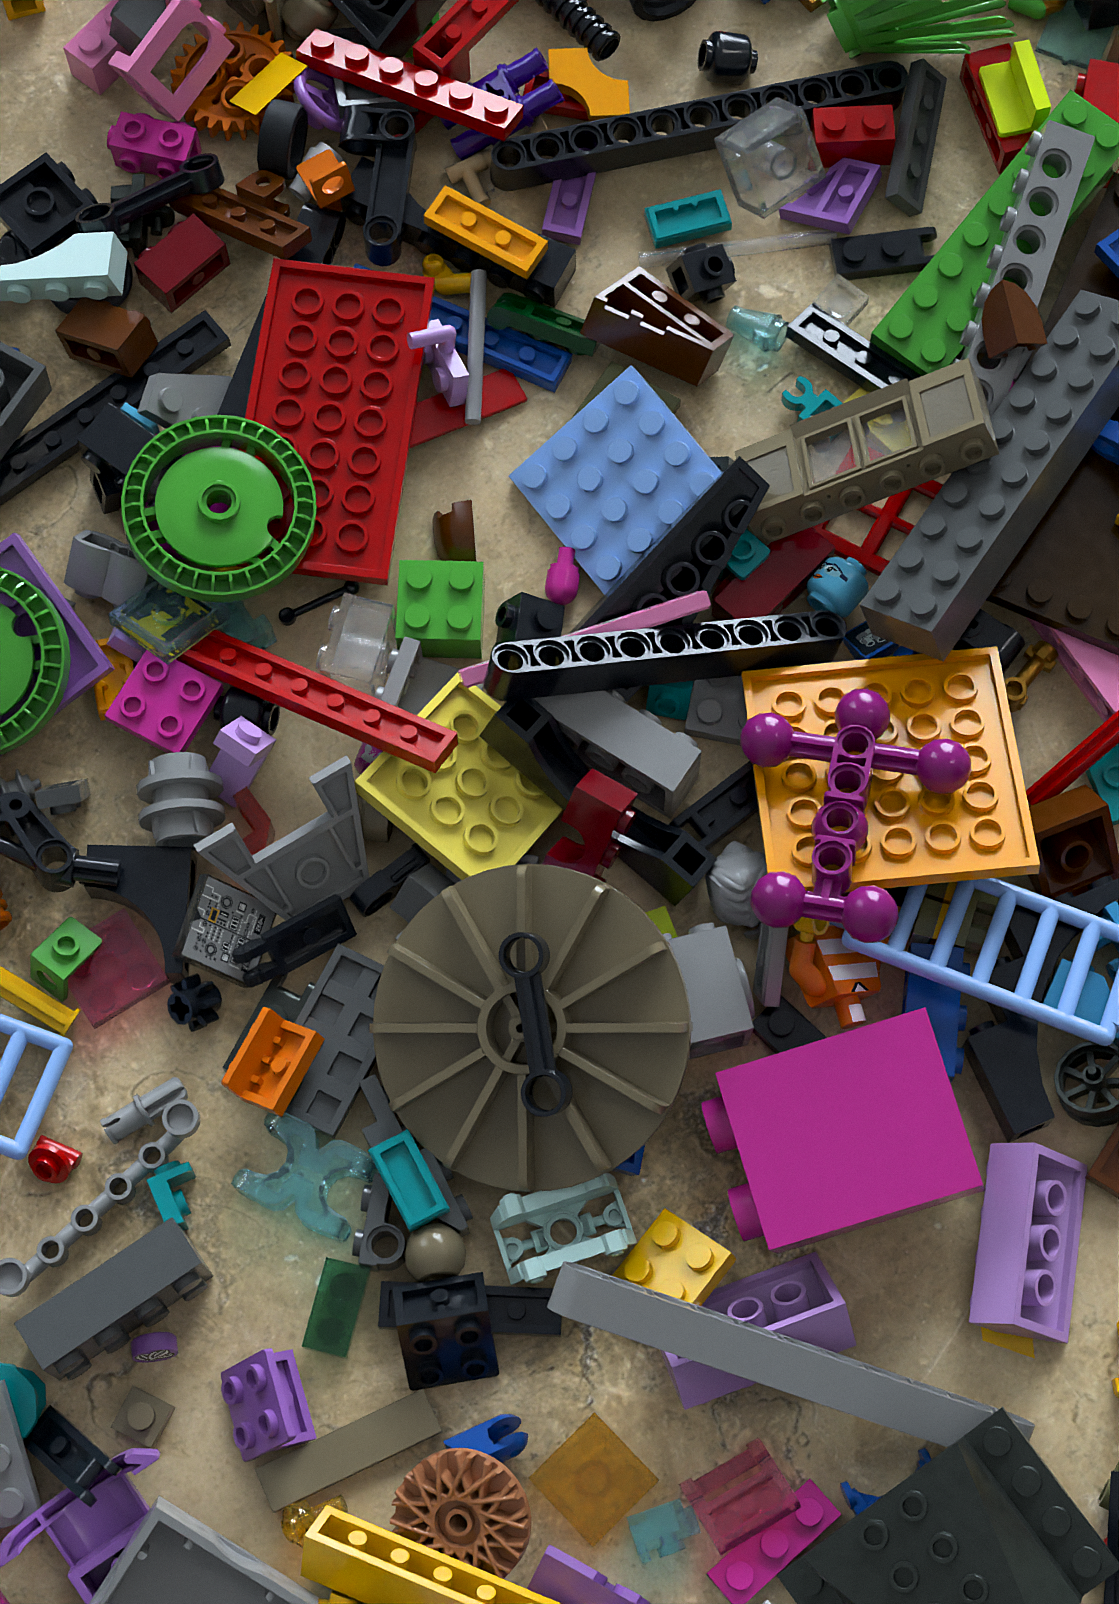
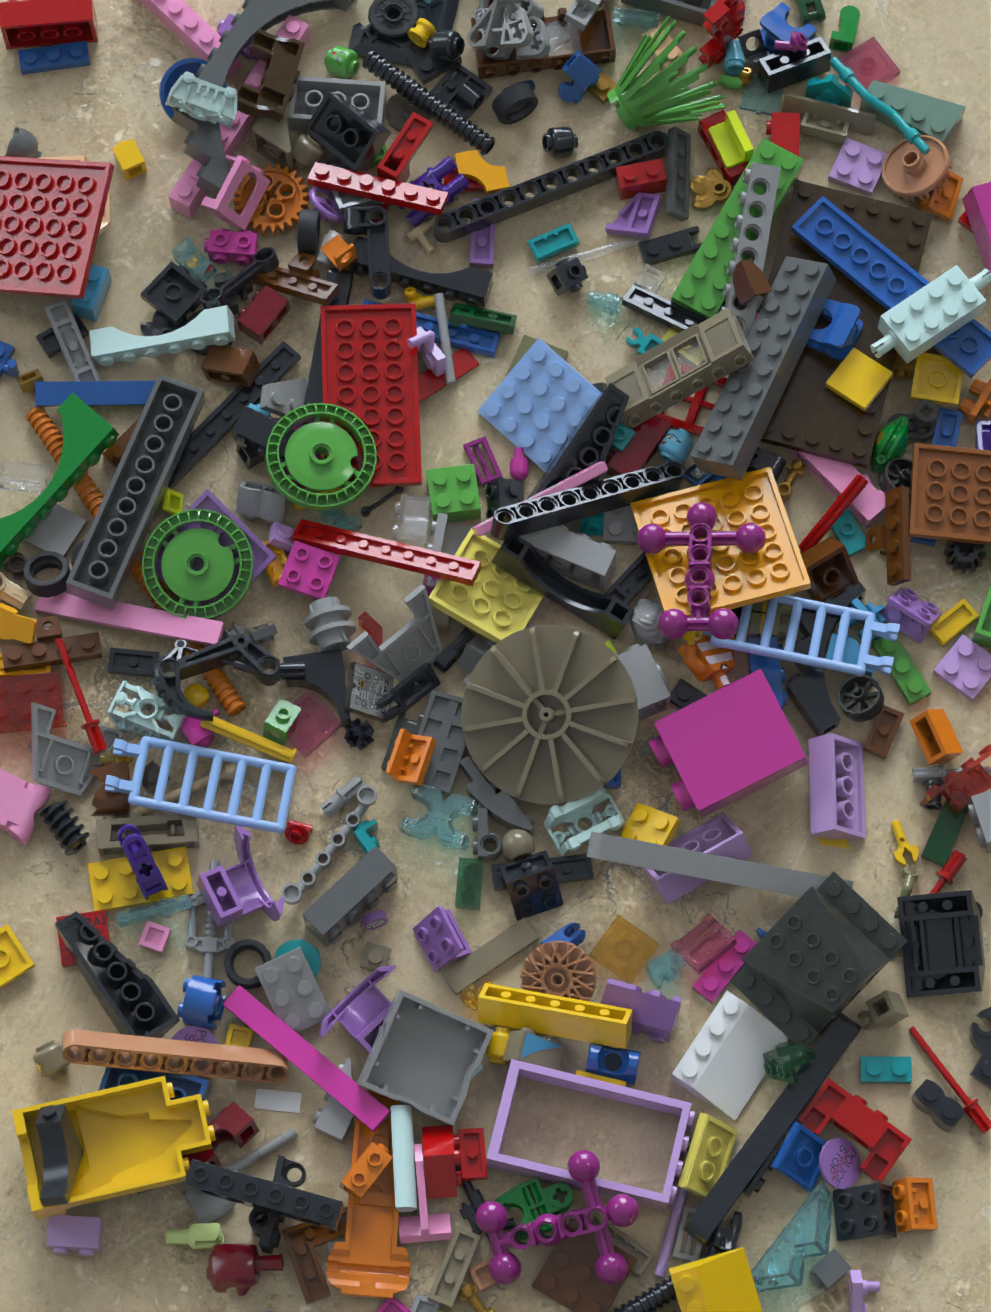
camera: 10 degrees left, 0 degrees up
(69, 1454) = (342, 979): black hinge -> none
(85, 158) = (194, 260): none -> clear light blue leg
(166, 620) = (301, 524): clear light blue tile -> none
(240, 756) = (358, 595): lavender bracket -> none
(244, 704) = (355, 571): black head -> none
(268, 83) = (294, 200): yellow sticker -> none
(409, 1180) = (497, 808): teal tile -> none
(455, 533) = (453, 449): reddish brown brick -> none
(486, 232) = (439, 271): light orange plate -> none
(495, 529) = (475, 443): none -> magenta tile
(535, 1024) = (554, 710): black piece -> none
(600, 814) = (566, 593): dark red arch -> none
(657, 328) = (548, 312): reddish brown wedge -> none
(770, 157) = (596, 201): clear brick -> none
(770, 965) = (673, 661): light grey tile -> none
(962, 170) = (707, 187): none -> pearl gold plate

